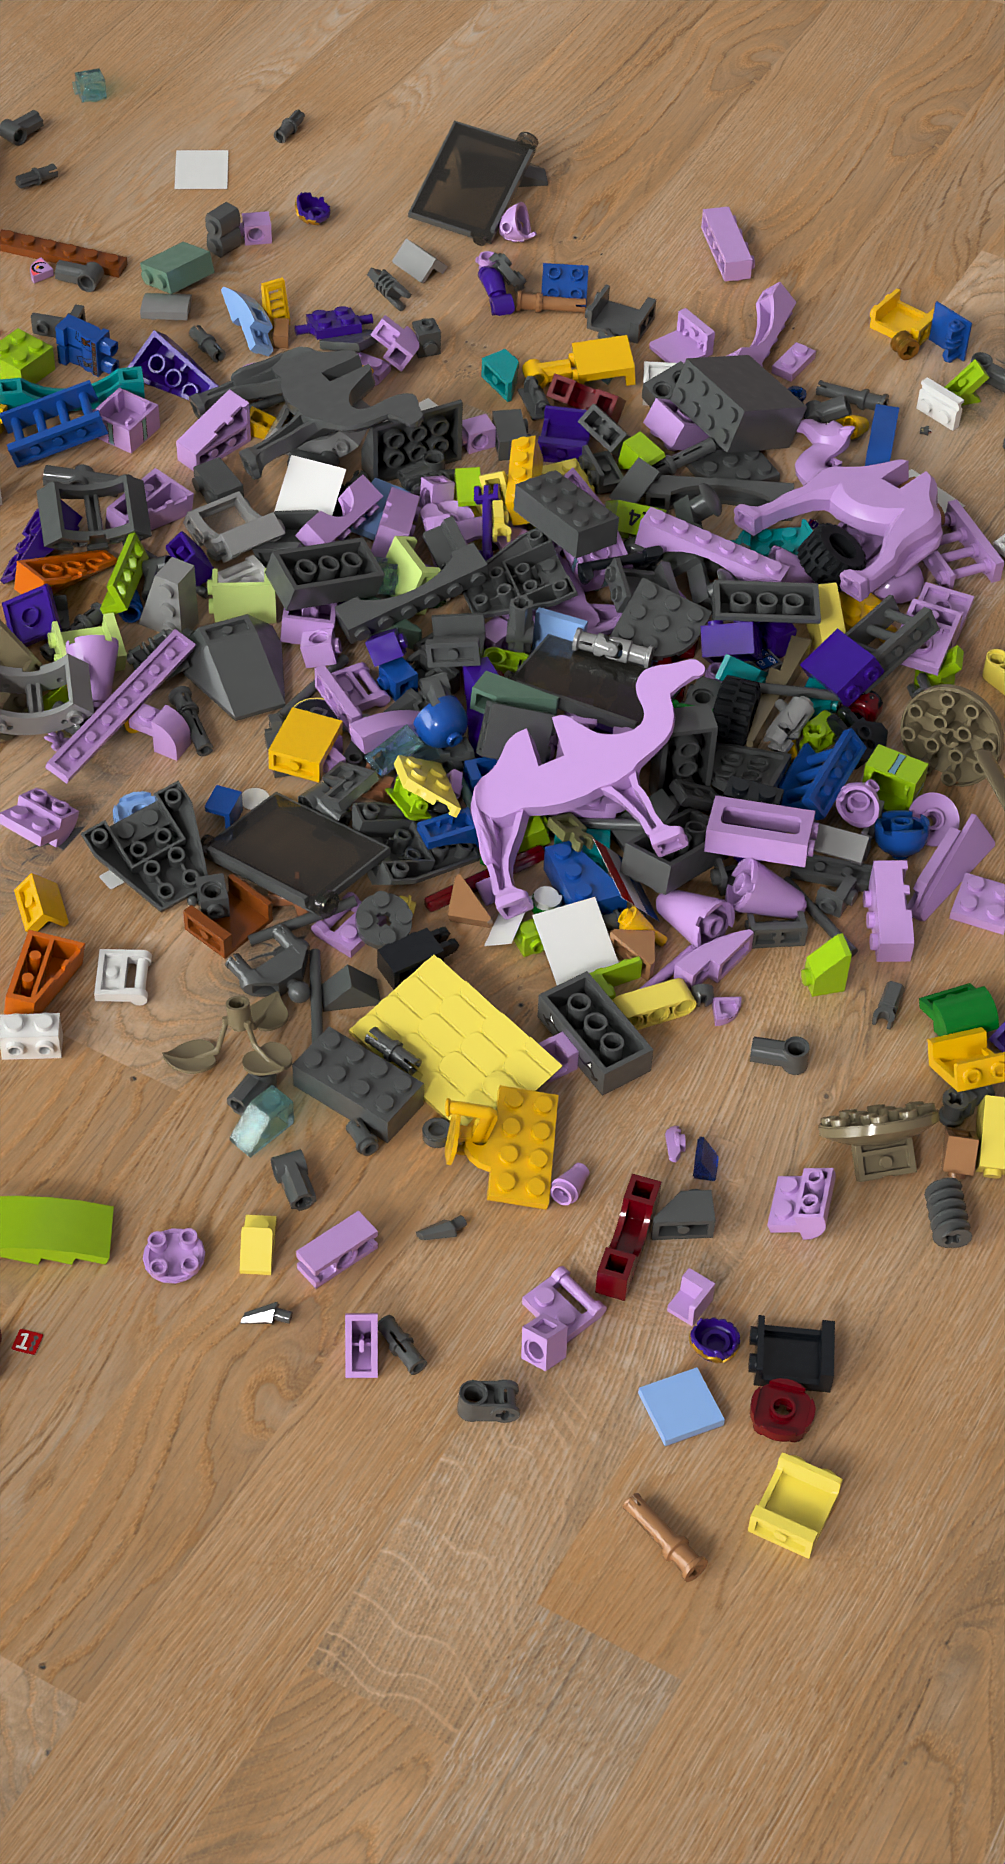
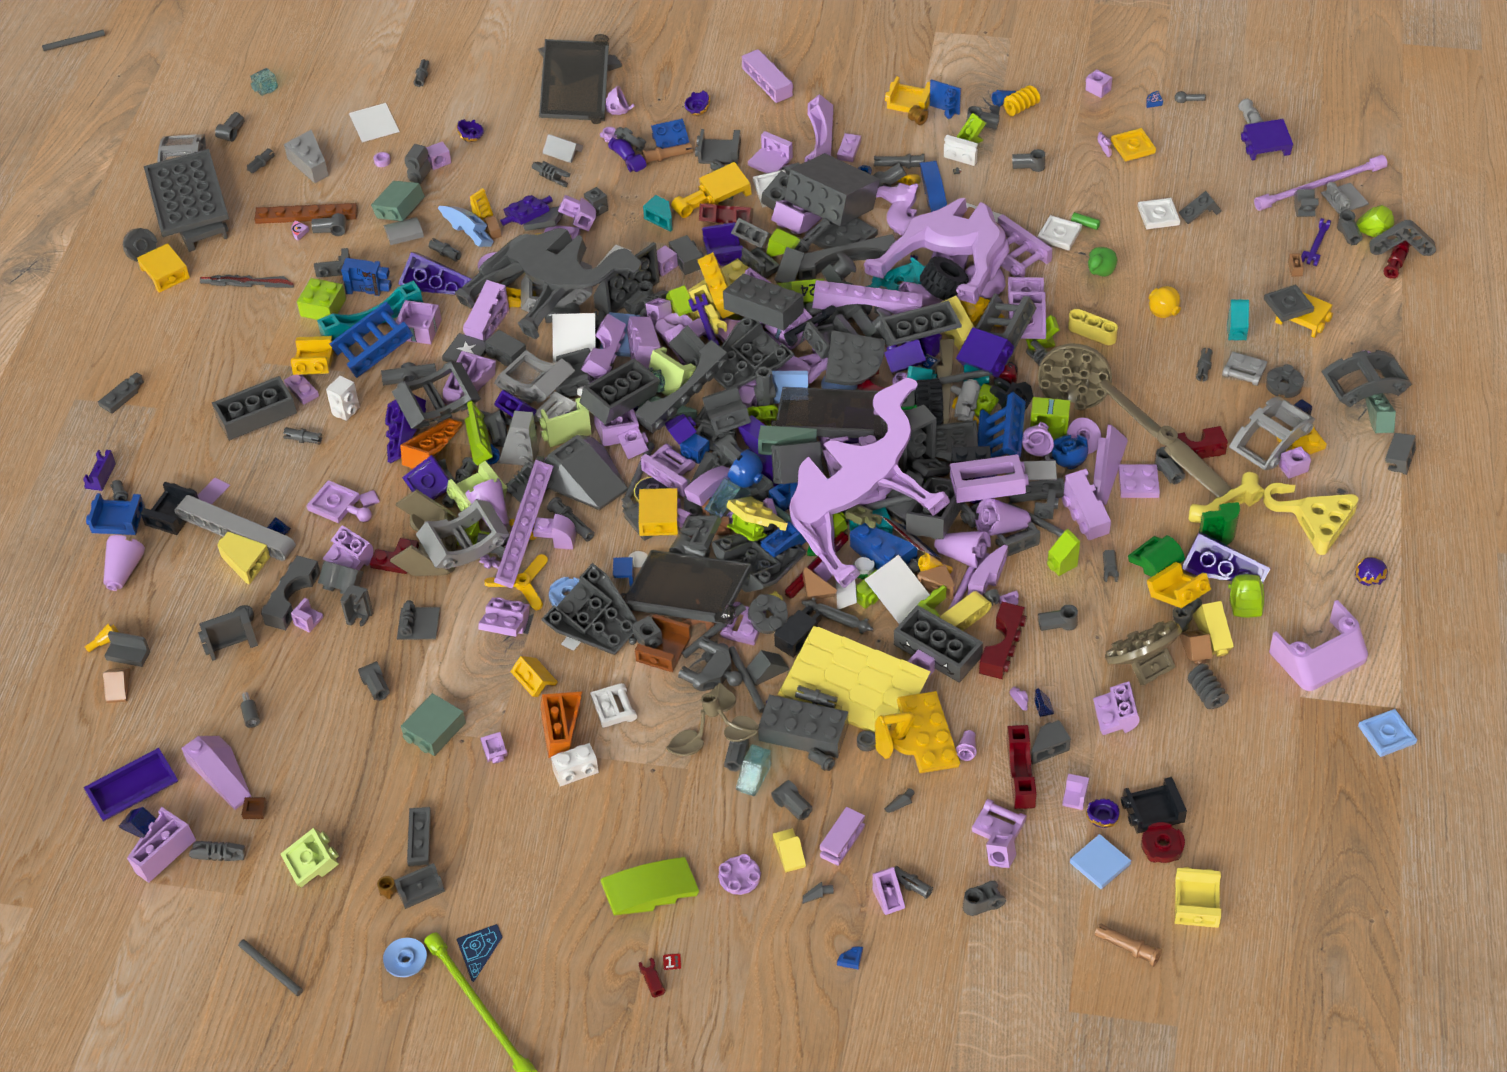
camera: 15 degrees left, 0 degrees up
(92, 779) = (523, 581): none -> yellow piece
(95, 185) = (307, 156): none -> light grey wedge
(172, 465) = (464, 343): none -> dark grey tile
(187, 215) = (382, 159): none -> lavender tile
(268, 1421) = (851, 958): none -> blue tile
(481, 954) = (839, 616): none -> dark grey wheel
(533, 398) = (689, 224): dark grey hinge -> none
(610, 647) = (829, 384): light grey piece -> none
(619, 254) = (697, 103): none -> dark purple hair
(667, 1079) = (996, 657): none -> dark red arch

